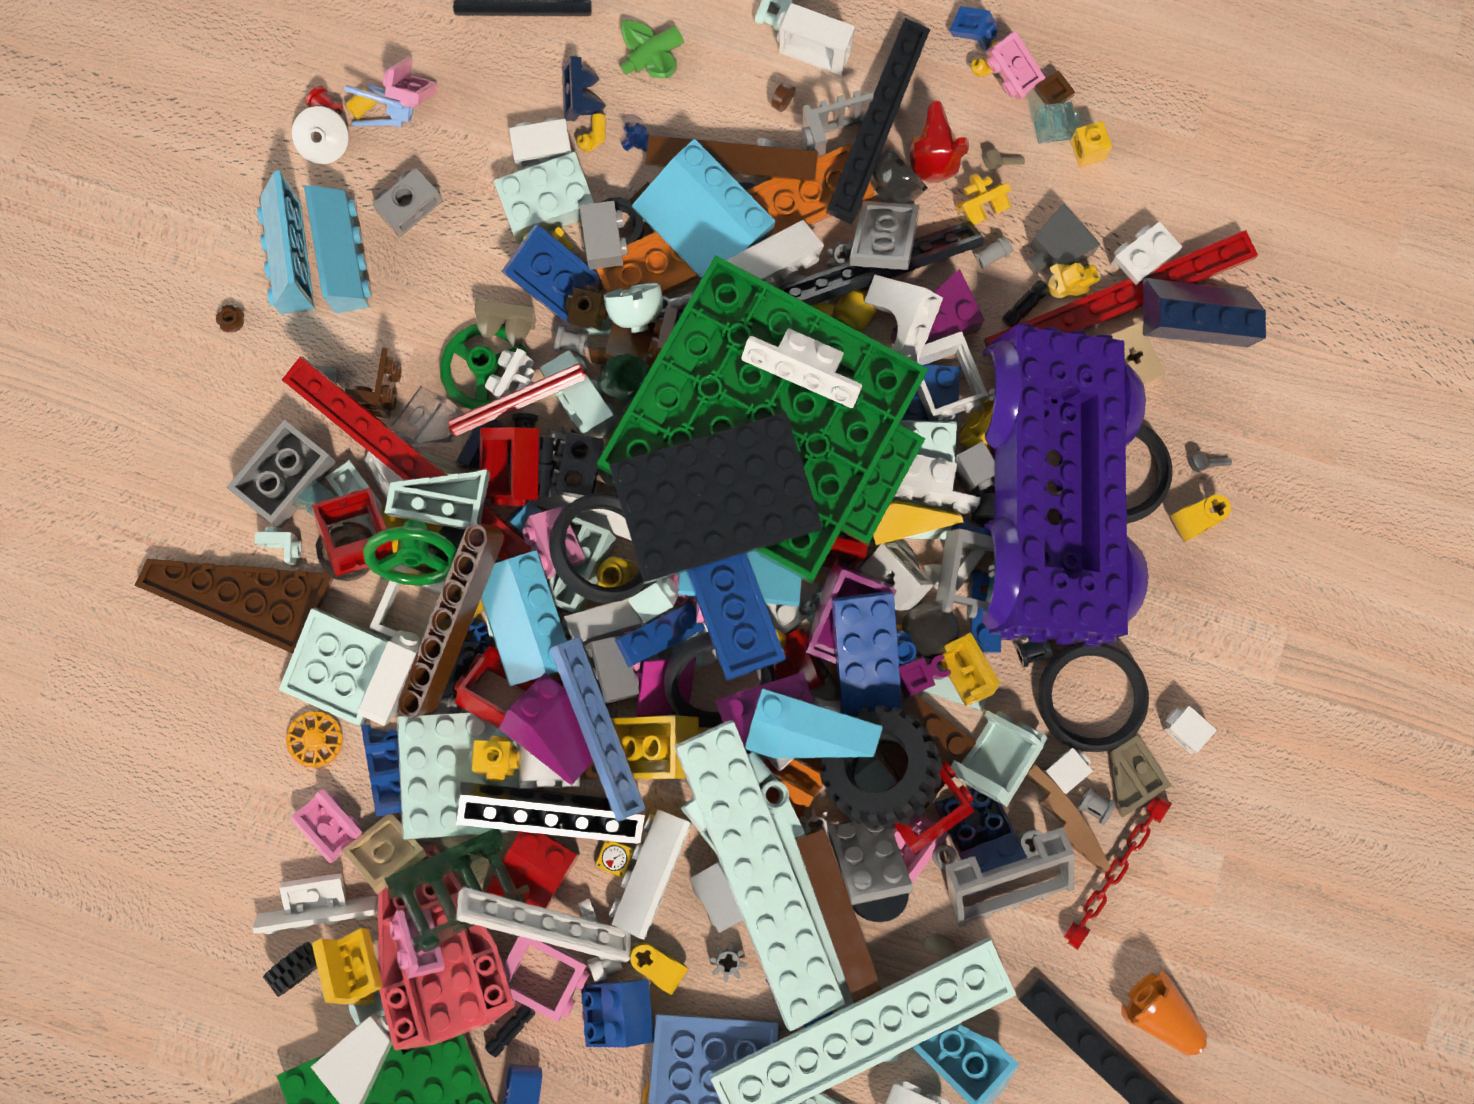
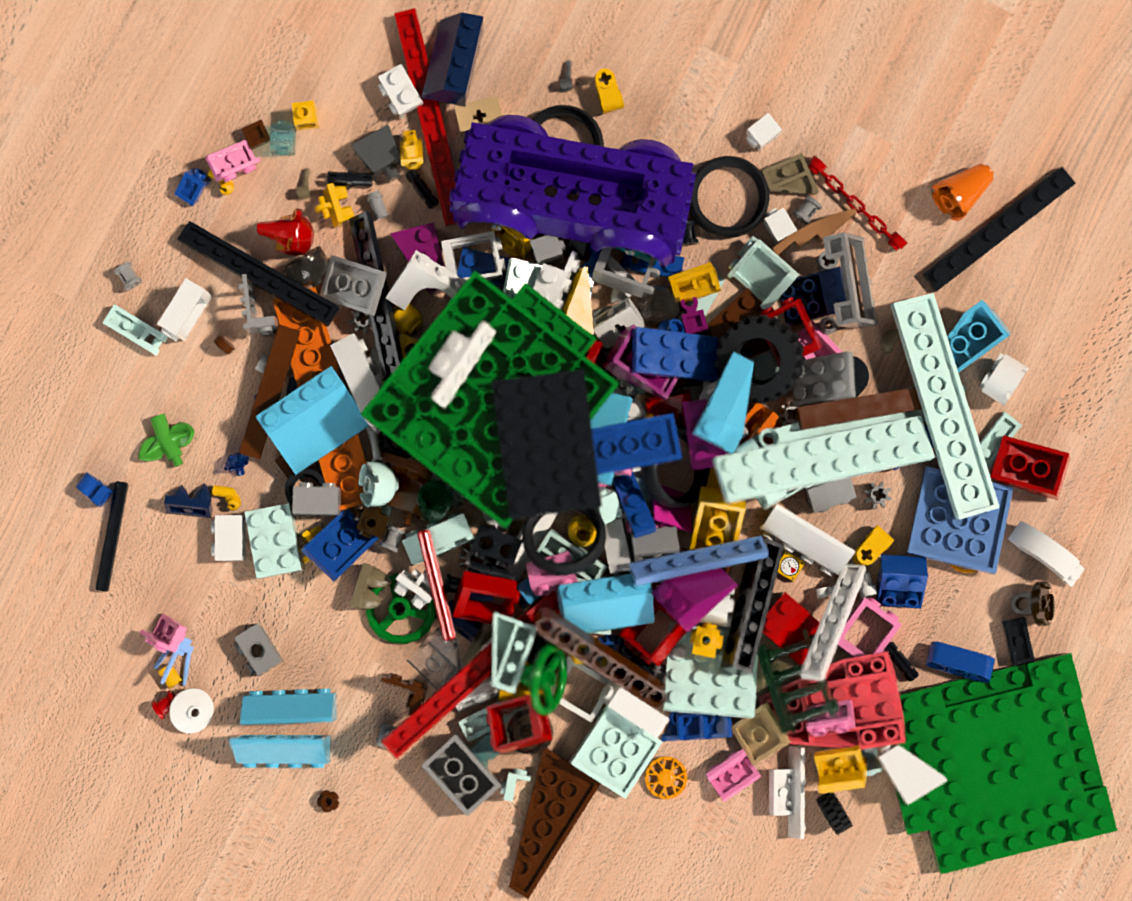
camera: 80 degrees left, 5 degrees up
(1021, 213) = (350, 178): none -> black pin

